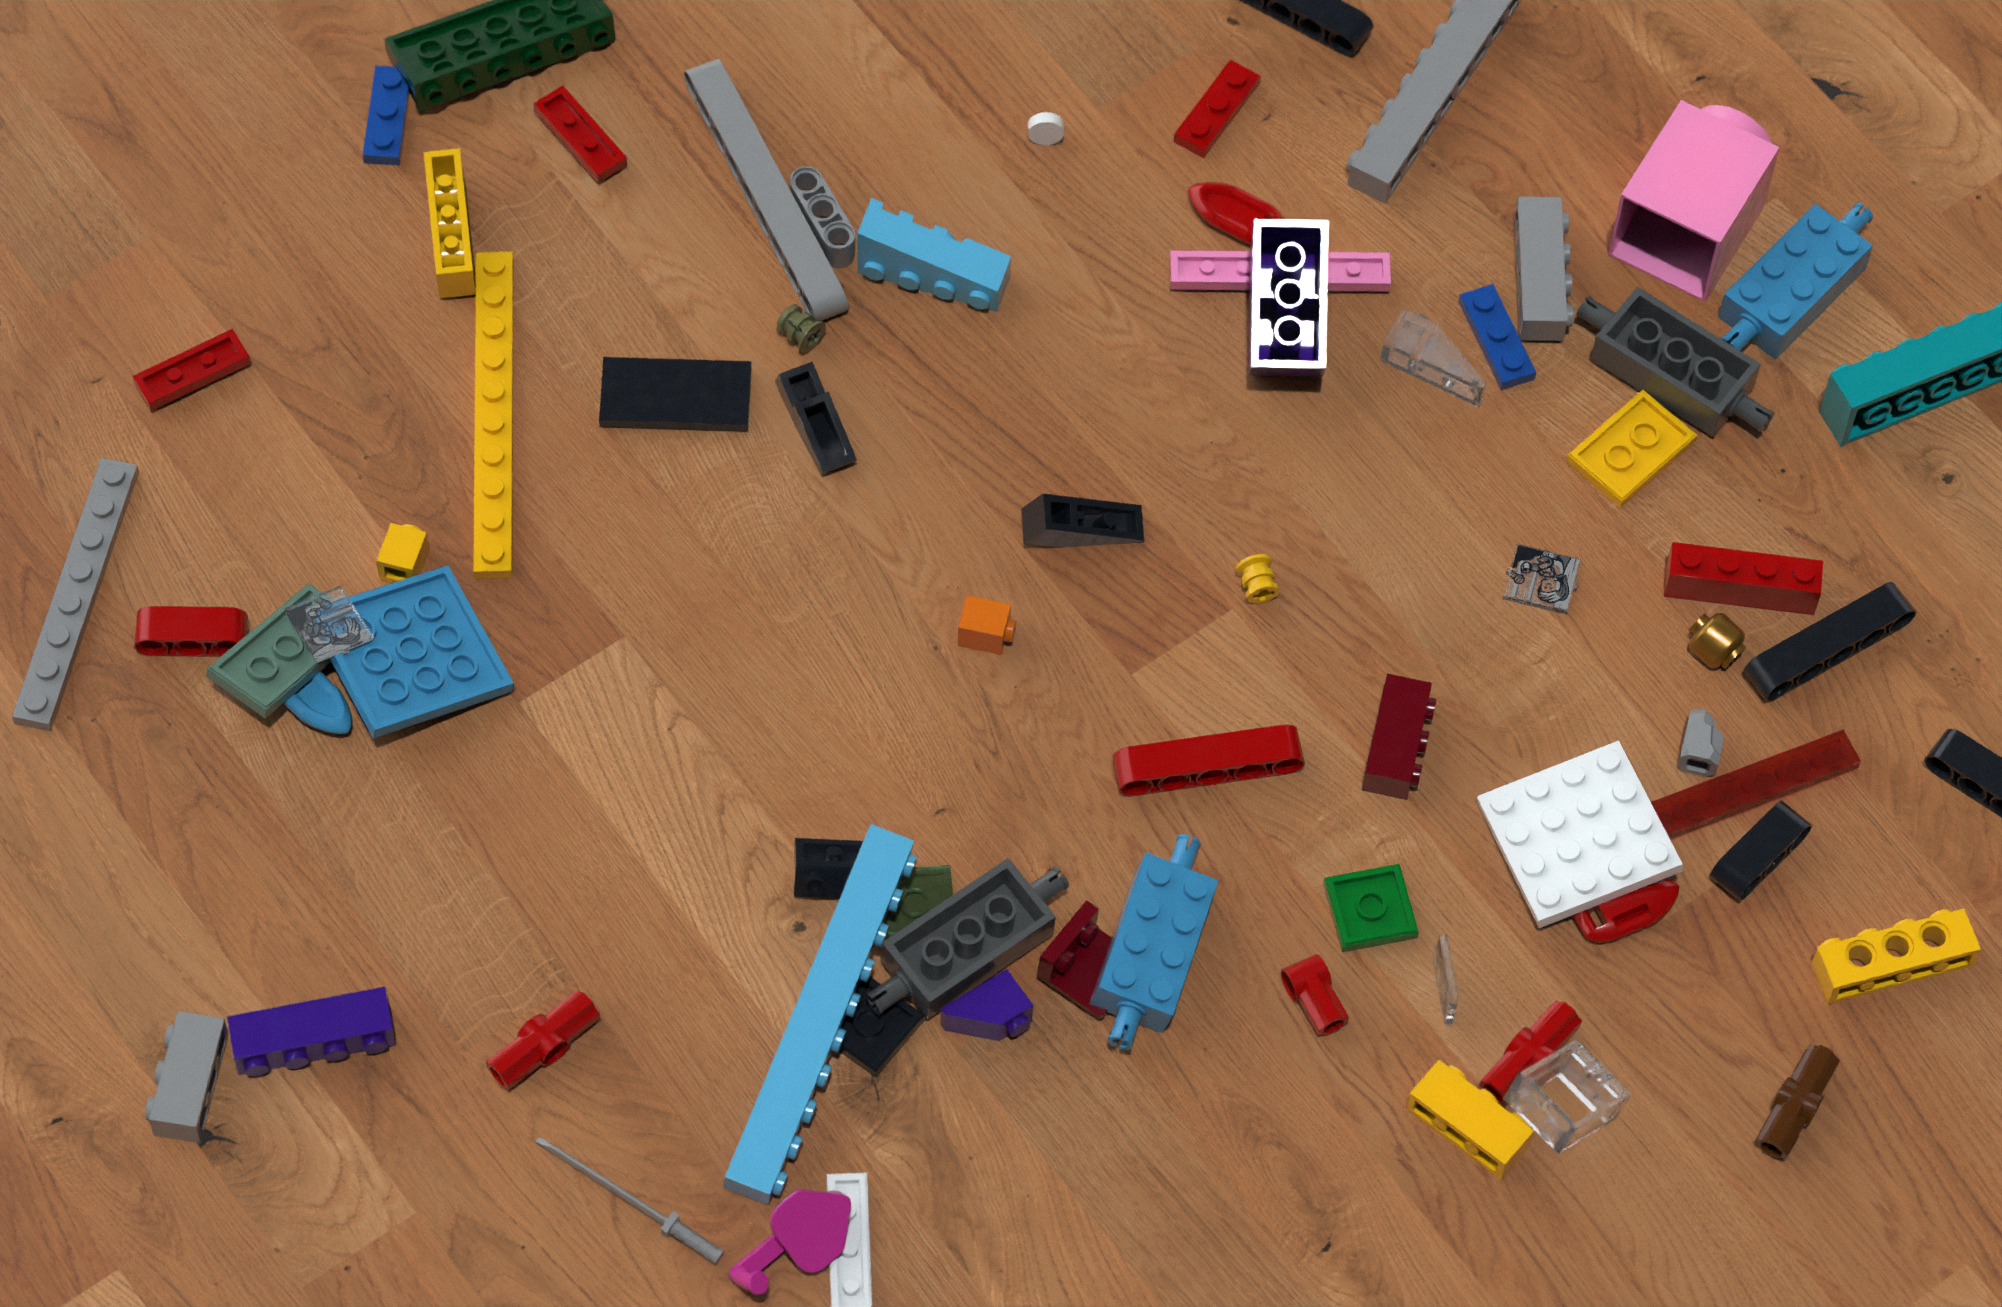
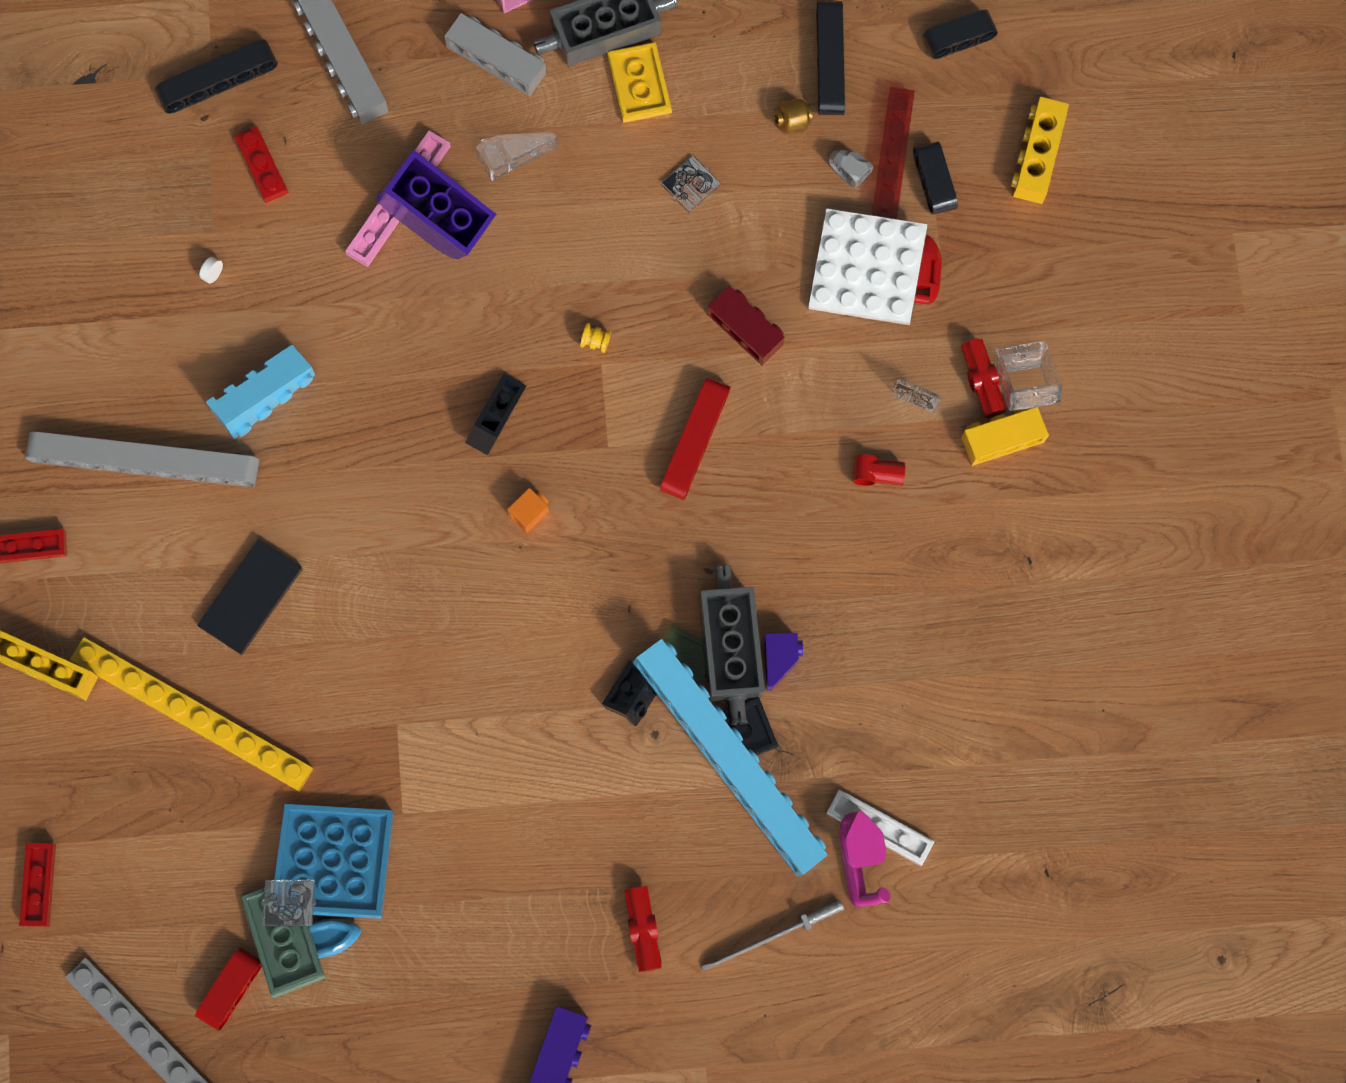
camera: 60 degrees left, 15 degrees up
(402, 553) = (258, 826): yellow brick -> none
(800, 328) = (255, 496): olive bush -> none
(815, 417) = (323, 524): black slope -> none
(822, 202) = (175, 430): light grey beam -> none
(1076, 958) = (785, 584): dark red bracket -> none
(1154, 942) = (796, 540): dark azure brick -> none
(1230, 208) = (342, 197): red piece -> none
(1370, 908) = (839, 407): green tile -> none
(1497, 337) = (519, 107): blue plate -> none
(1743, 578) = (764, 77): red brick -> none
(1797, 1102) = (1095, 257): reddish brown piece -> none

